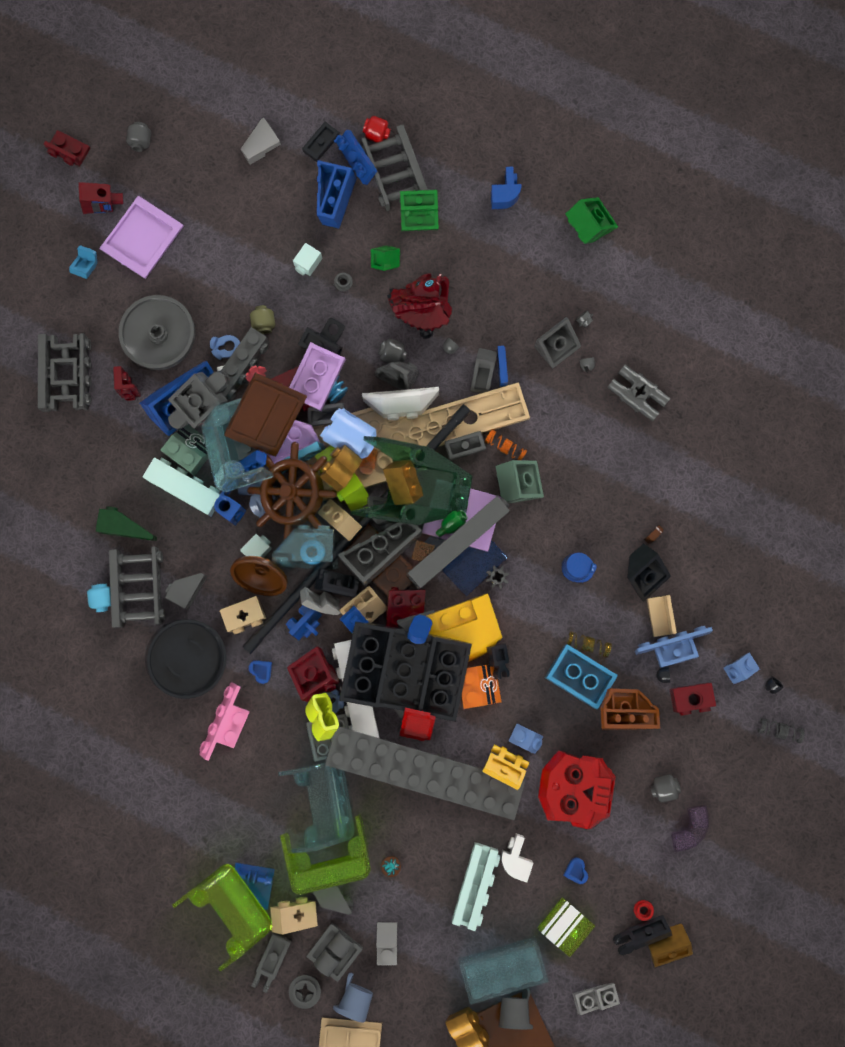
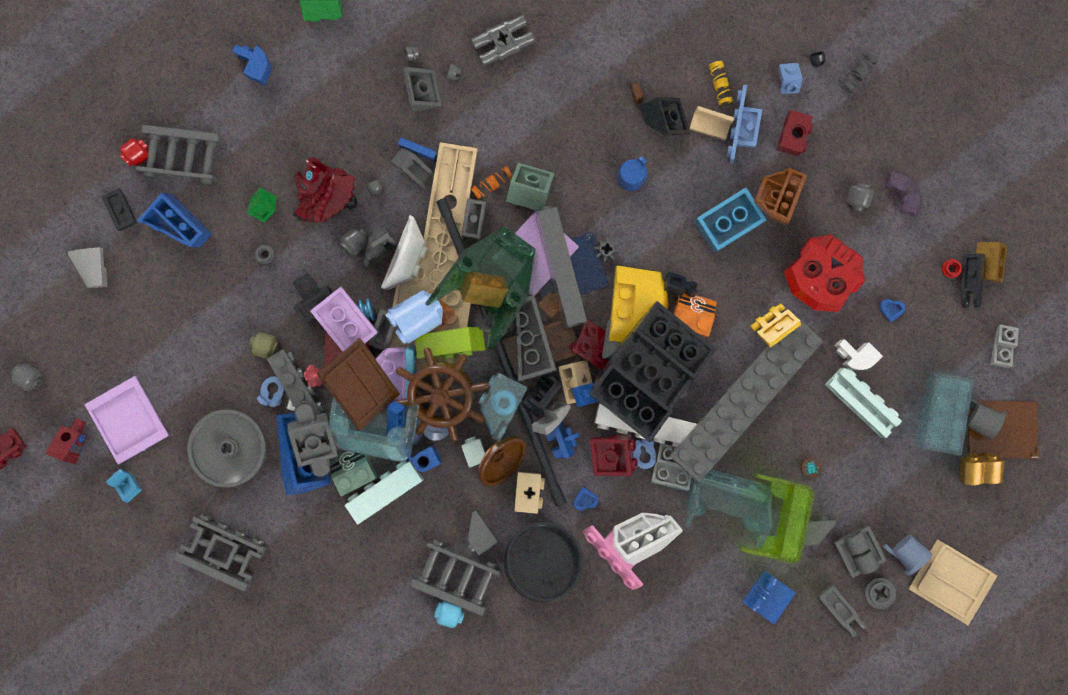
camera: 65 degrees left, 5 degrees up
(115, 523) = (388, 567): dark green slope -> none
(124, 386) = (261, 501): dark red bracket -> none
(235, 907) = (783, 619): clear neon green windscreen -> none
(251, 739) = (644, 536): none -> white wedge
(293, 916) = (814, 572): tan brick -> none
(307, 260) = (227, 277): light aqua brick -> none
(321, 716) = (655, 465): neon yellow brick -> none
(339, 519) = (486, 364): tan brick -> none
(340, 468) = (443, 338): pearl gold brick -> none
(356, 156) = (151, 183): blue plate -> none
(386, 943) = (874, 502): light grey slope -> none
(417, 724) = (702, 384): red window -> none
(419, 210) = (232, 151): green slope -> none
(419, 629) = (622, 340): blue tile -> none
(452, 523) = (539, 265): green plant -> none
(526, 739) = (759, 295): medium blue bracket -> none
(566, 927) = (934, 341): slope -> none
(588, 646) = (705, 198): clear yellow piece -> none
(663, 675) = (763, 148): black hinge -> none
(704, 606) = (720, 82): none -> yellow piece

